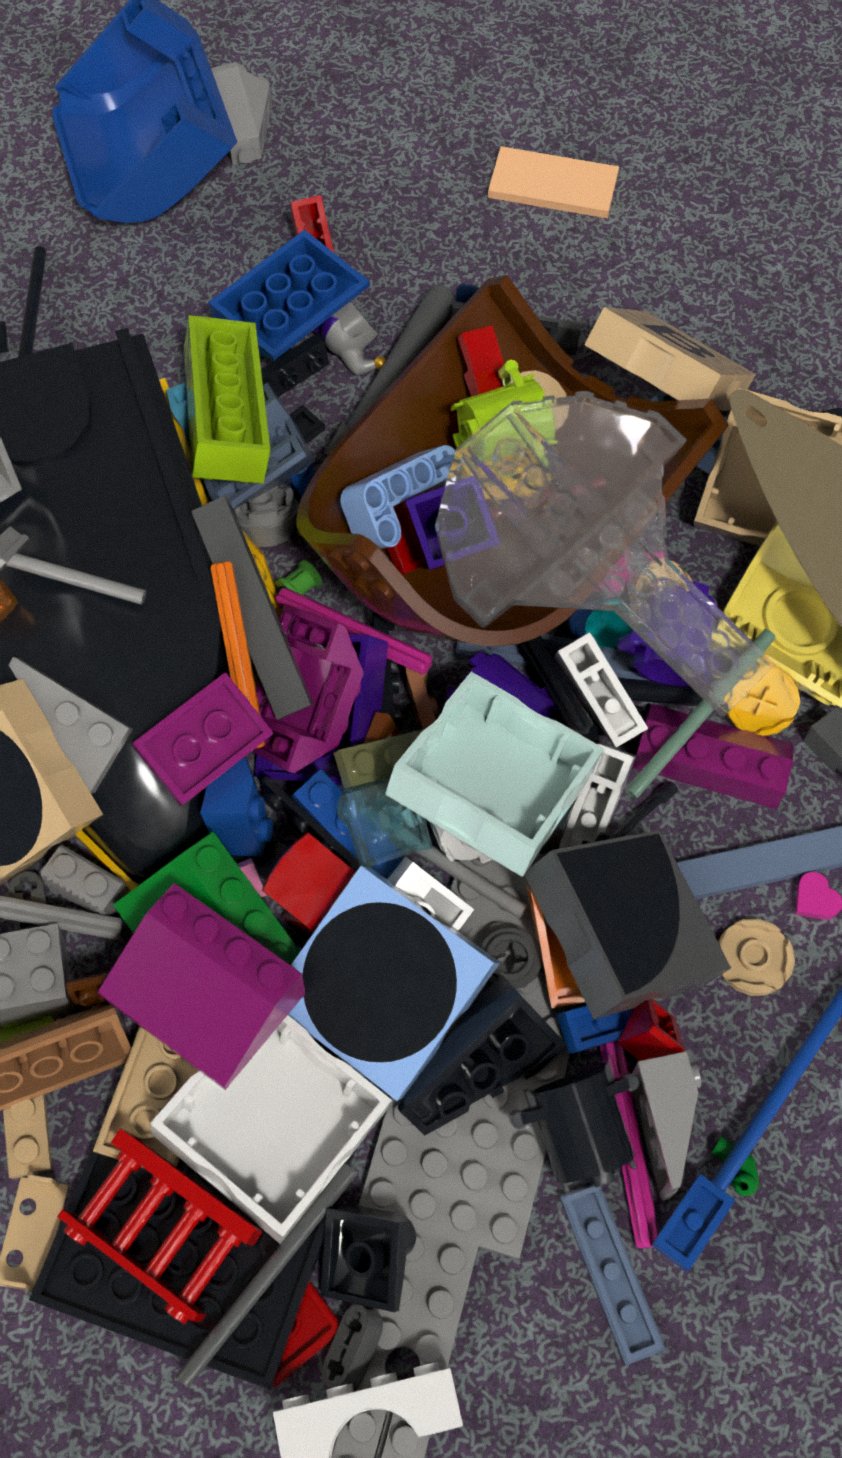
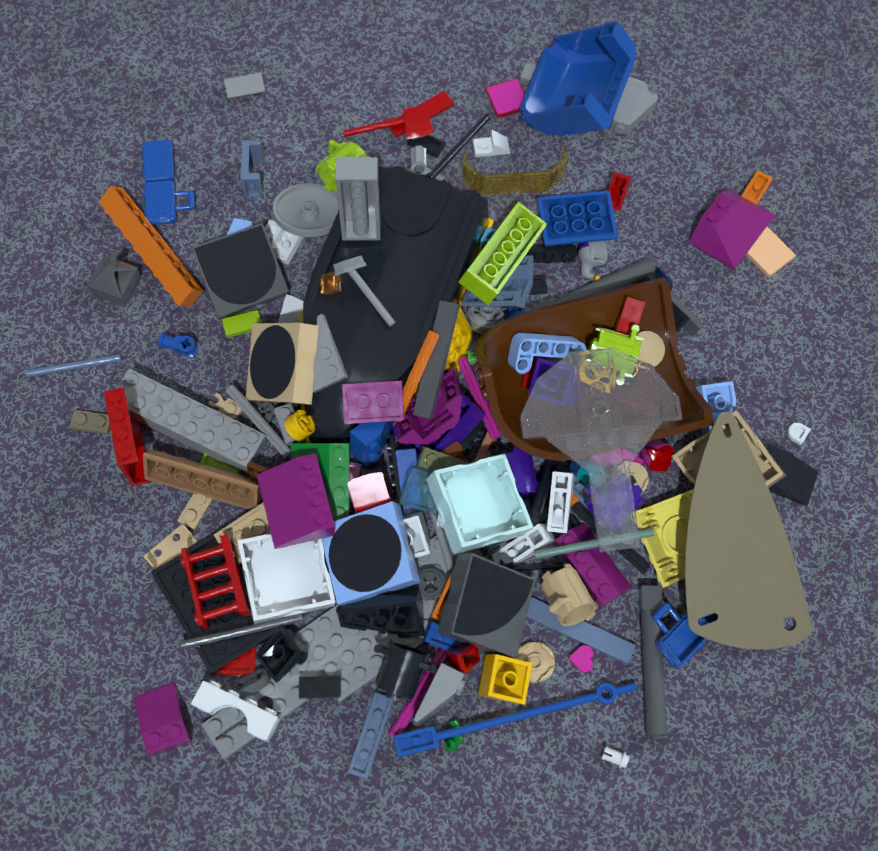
camera: 35 degrees right, 5 degrees up
(47, 211) = (505, 97): none -> dark pink tile
(54, 161) = (528, 72): none -> light grey tile
(76, 287) = (494, 145): none -> white slope
(105, 865) = (299, 425): none -> yellow wheel
(157, 305) = (511, 183): none -> clear yellow windscreen
(471, 1260) = (320, 687): none -> black plate
(495, 118) = (757, 187): none -> orange plate
(507, 186) = (730, 228): none -> magenta slope
(666, 357) = (723, 373): tan tile -> none
(680, 535) = (657, 455): none -> red hat
(726, 818) = (568, 596): none -> tan container
(738, 1015) = (505, 679): none -> yellow slope
(768, 705) = (632, 561): yellow tile -> none
(821, 383) = (797, 432): none -> white tile

